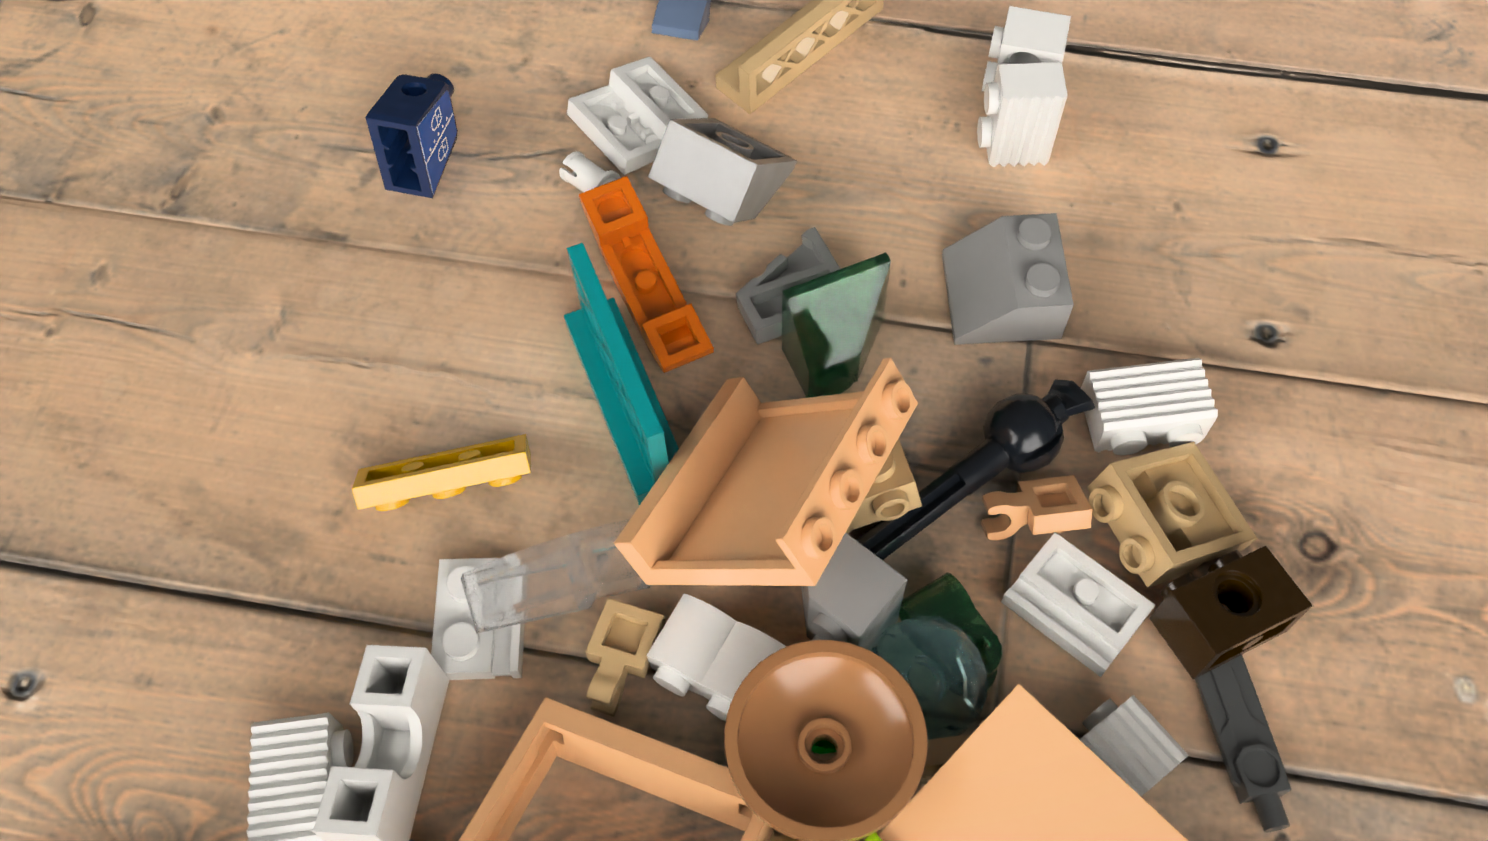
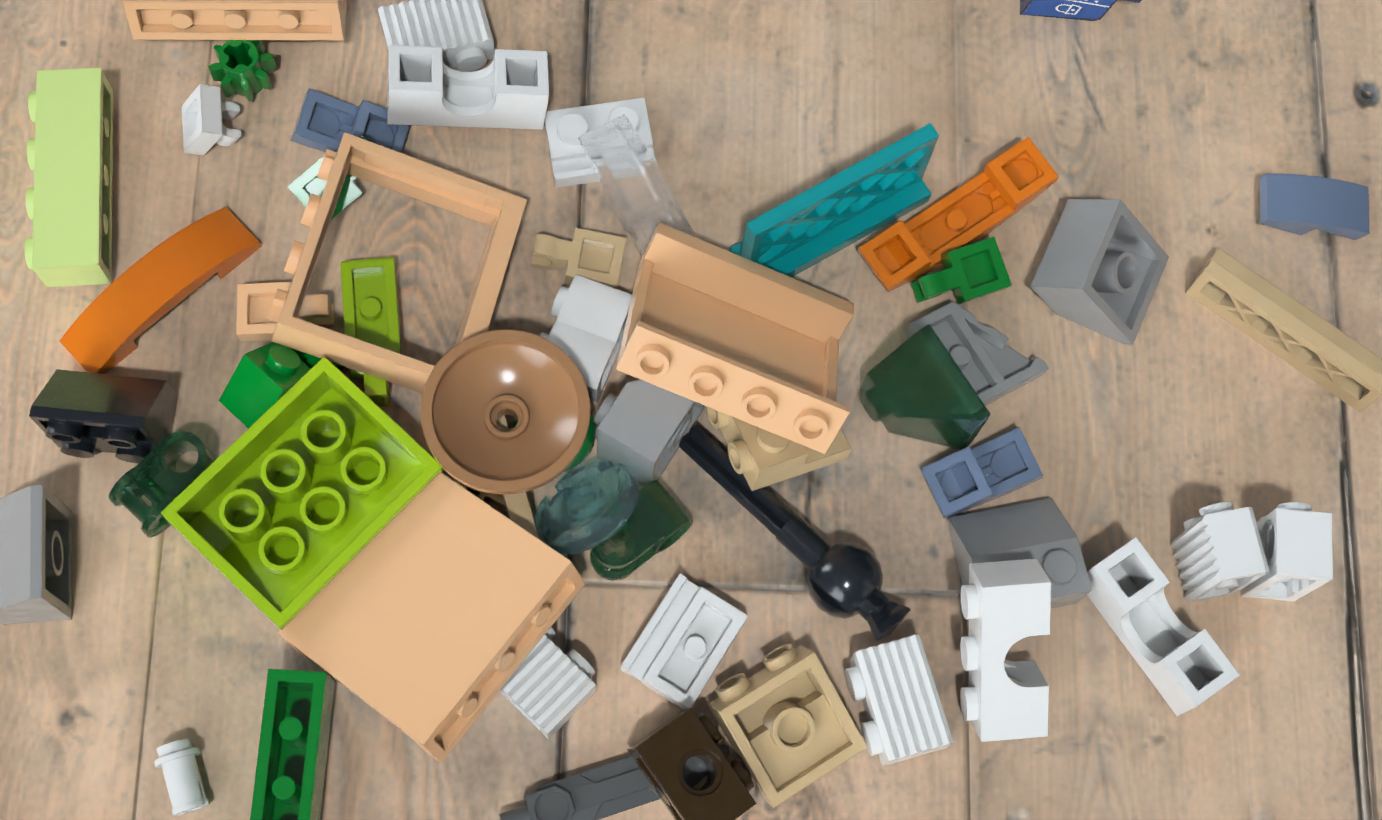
camera: 70 degrees right, 10 degrees up
(442, 473) = (725, 83): yellow plate -> none
(586, 173) = (1066, 147): white pin -> none
(632, 113) = (1157, 178): white slope -> none
(707, 275) = (969, 272): none -> green plate
(916, 306) = (982, 473): none -> sand blue slope
(1043, 504) = (773, 607): light nougat plate -> none
(1083, 279) = (1002, 607): none -> white arch
(1121, 165) = (1178, 661): none -> white arch

